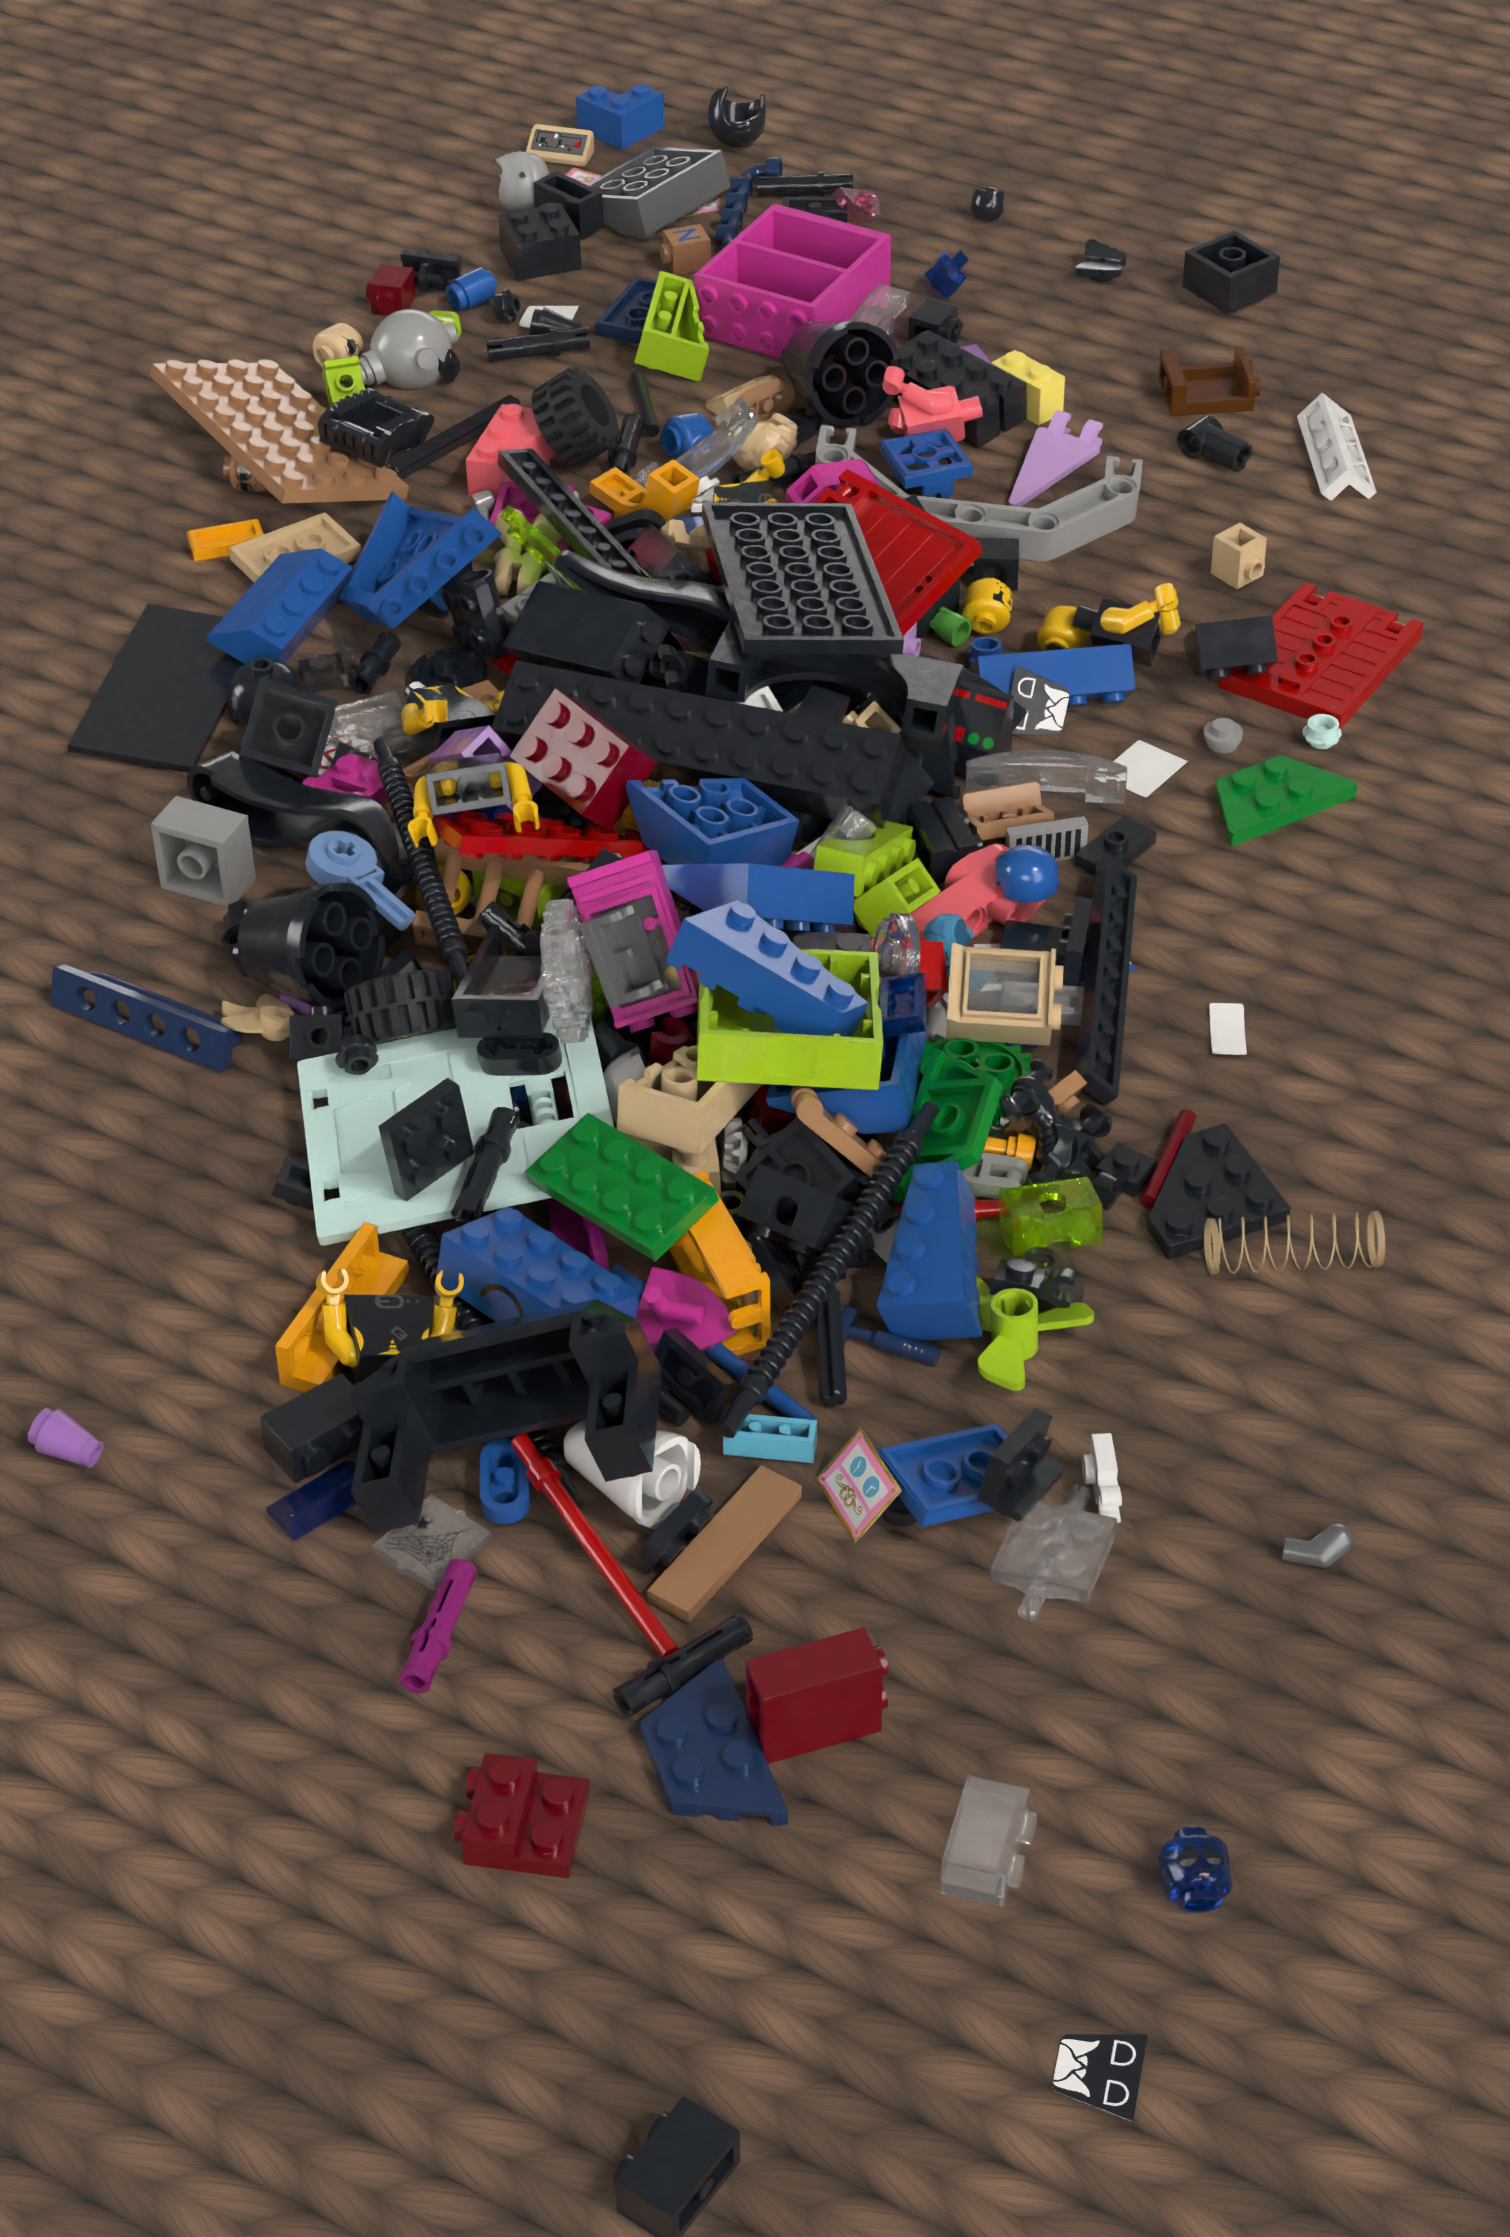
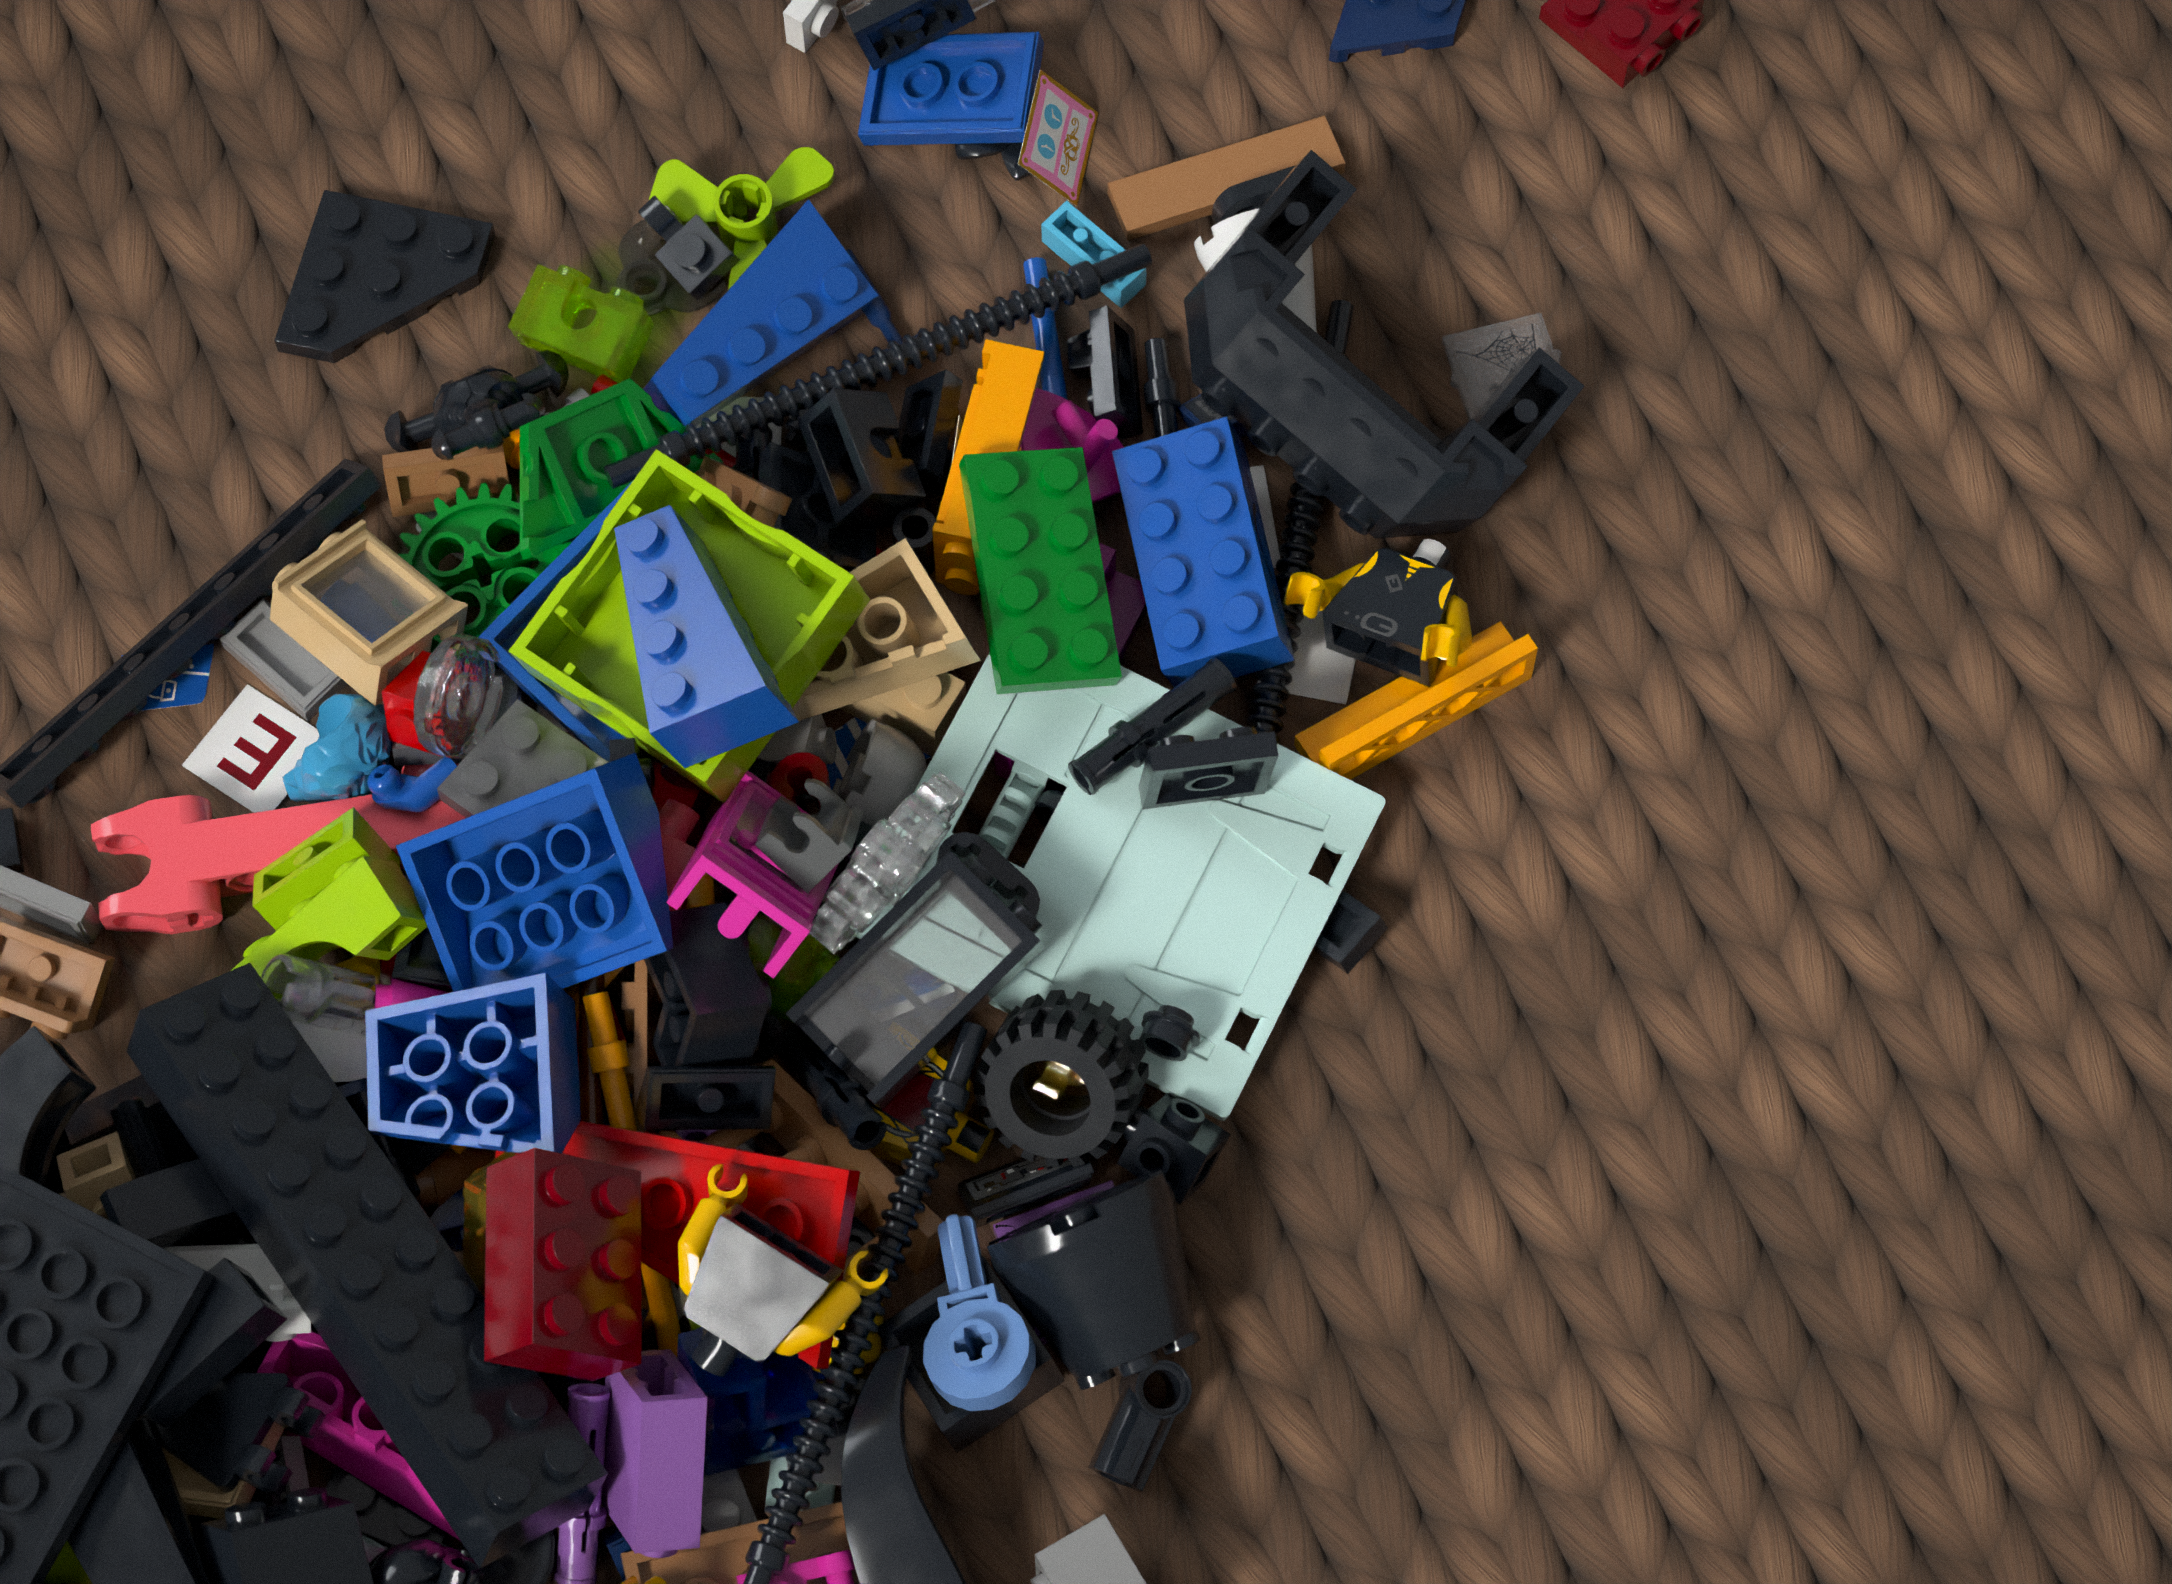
camera: 145 degrees left, 25 degrees up
(63, 1438) = (1814, 723): medium lavender cone -> none
(214, 1037) = (1419, 1476): dark blue piece -> none
(268, 1017) = (1222, 1270): tan plate -> none
(313, 1429) = (1540, 555): black brick -> none
(315, 1501) = (1586, 482): clear blue slope -> none
(432, 1640) = (1589, 237): magenta pin -> none
(503, 1483) = (1391, 375): blue plate -> none
(545, 1478) = (1359, 327): red bar -> none
(668, 1673) = (1371, 66): black pin -> none
(830, 1352) = (966, 294): black axle -> none
(903, 1004) = (529, 580): clear blue plate -> none
(941, 835) = (147, 970): black brick -> none
(1027, 874) = (141, 808): blue hair -> none
(1068, 941) = (210, 713): black bracket -> none
(1120, 1172) = (439, 355): black plate -> none
(1180, 1129) = (372, 347): dark red bar -> none
(1227, 1028) = (126, 485): white sticker -> none
(1376, 1261) = (307, 82): tan piece -> none

